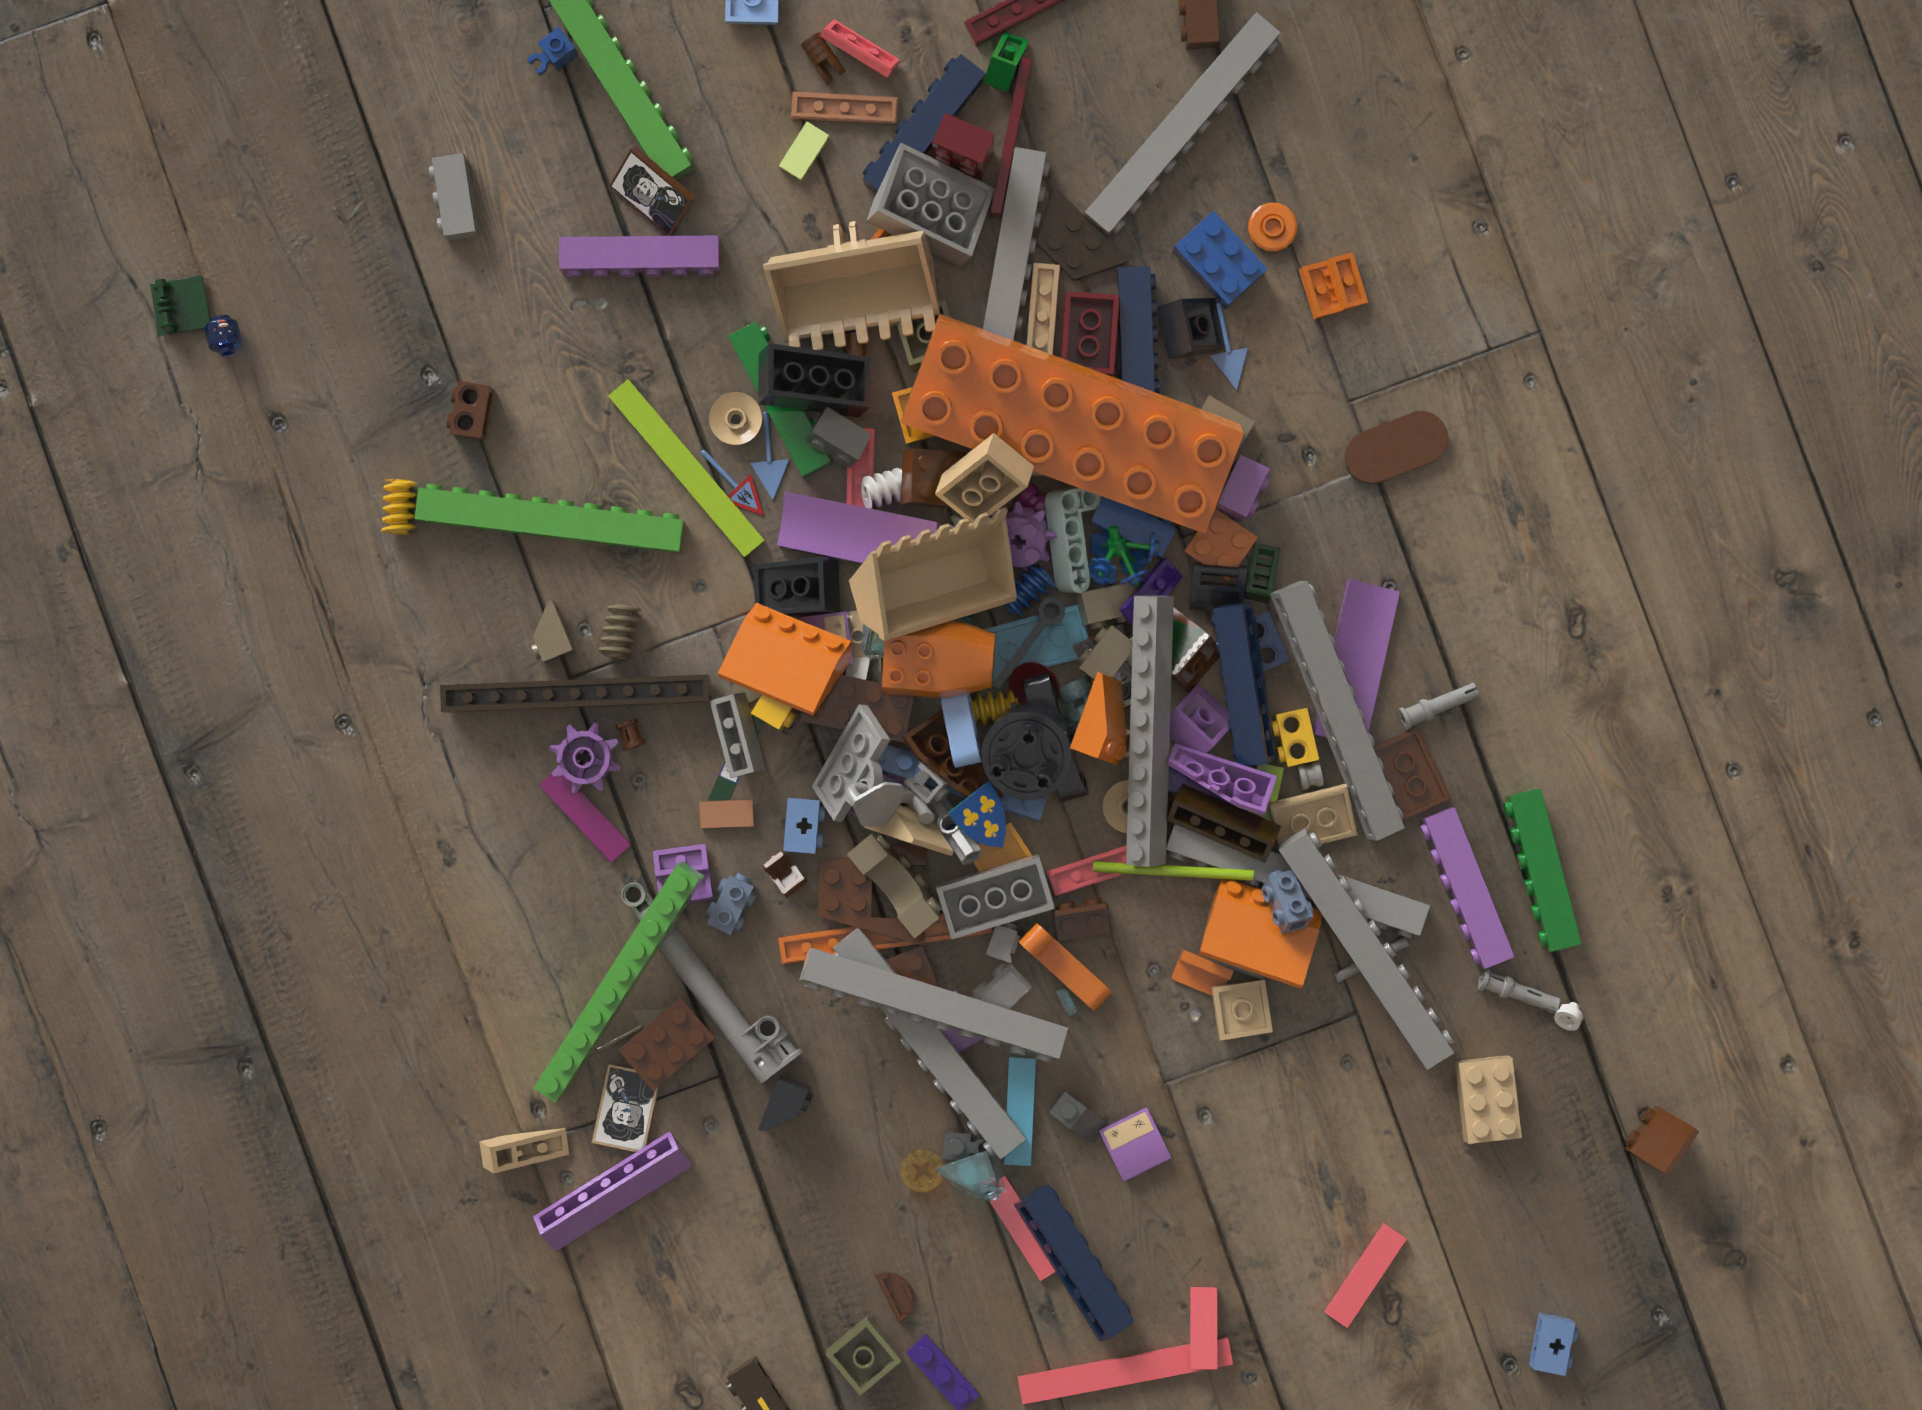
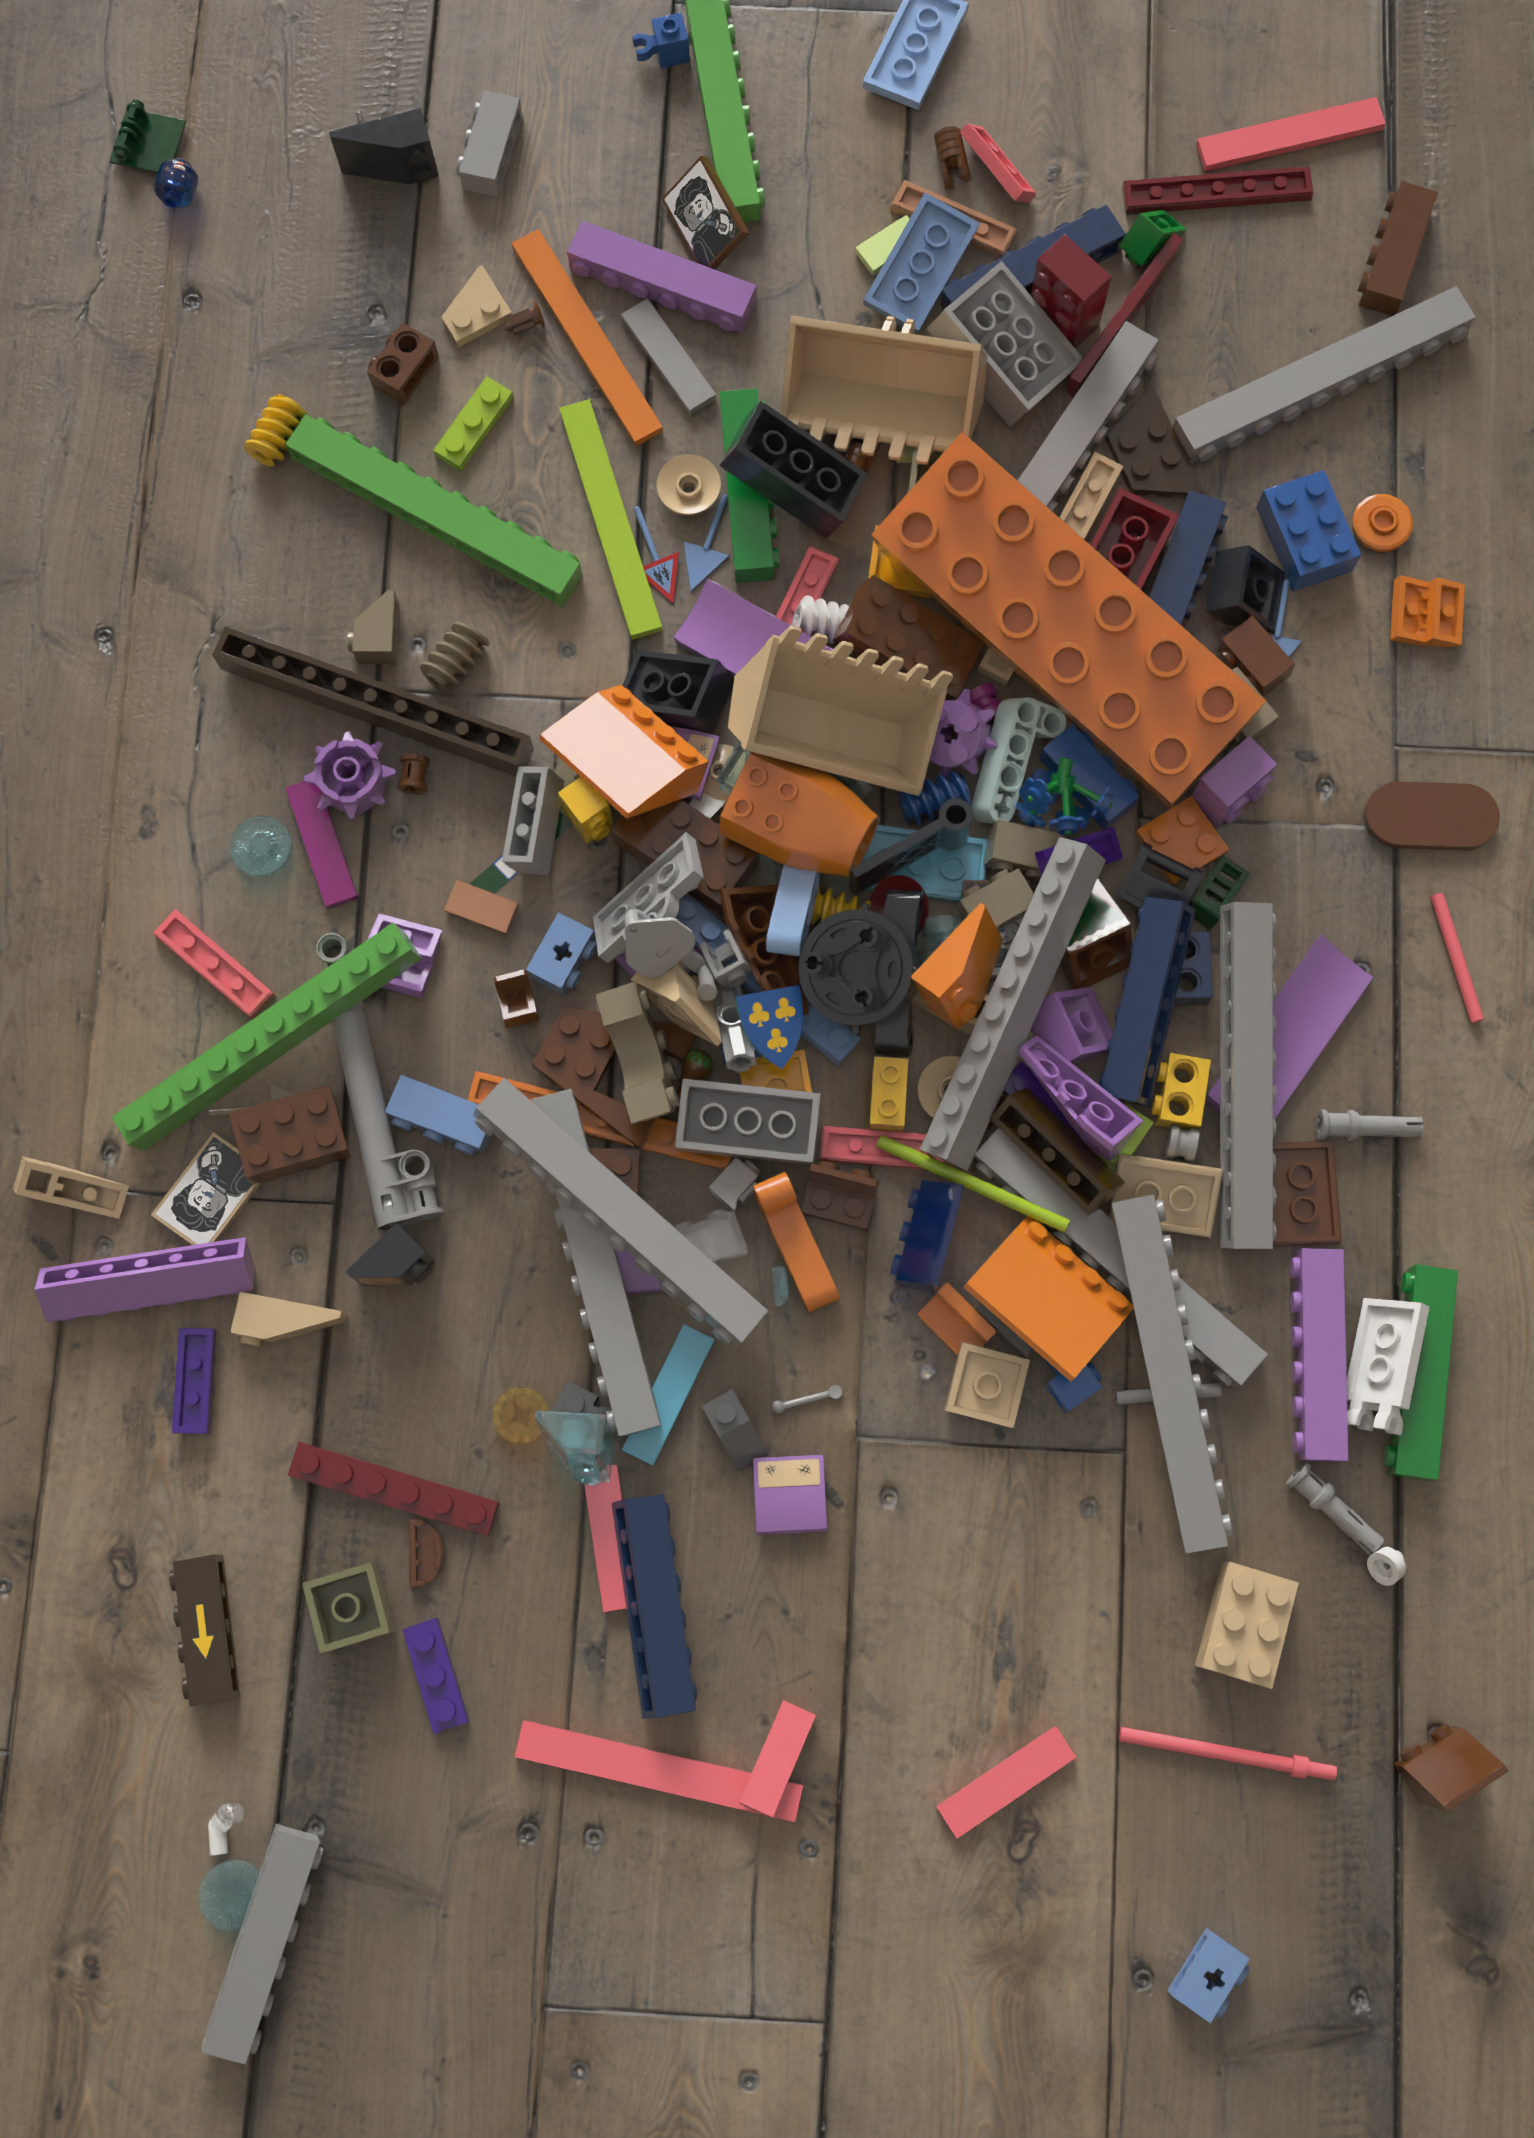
camera: 25 degrees right, 10 degrees down
(382, 238) = (387, 149): none -> black slope
(505, 339) = (475, 309): none -> tan wing
(541, 836) = (261, 846): none -> clear light blue wheel
(546, 435) = (473, 423): none -> lime plate
(548, 939) = (213, 964): none -> coral tile
(549, 333) = (525, 319): none -> reddish brown piece
(602, 326) = (587, 337): none -> orange tile
(672, 317) = (668, 357): none -> light grey tile
(679, 1246) = (194, 1381): none -> dark purple plate
(715, 1179) = (273, 1319): none -> tan slope
(734, 897) = (440, 1008): sand blue brick -> none
(766, 983) = (437, 1115): none -> medium blue brick
(836, 161) = (921, 262): none -> medium blue plate
(838, 437) = (794, 542): dark grey brick -> none
(855, 1259) = (393, 1488): none -> dark red plate
(937, 868) = (695, 1066): none -> reddish brown piece
(984, 479) = (942, 629): tan brick -> none
(1085, 830) = (888, 1094): none -> yellow brick
(1135, 1058) = (834, 1392): none -> light grey hinge
(1156, 922) = (927, 1235): none -> clear blue slope
(1219, 379) = (1256, 656): none -> reddish brown brick
(1287, 901) = (1096, 1270): sand blue brick -> none
(1310, 985) = (1071, 1394): none -> blue brick
(1455, 550) = (1457, 958): none -> coral bar
(1513, 876) = (1384, 1363): none -> white tile
(1559, 1179) = (1297, 1765): none -> coral bar

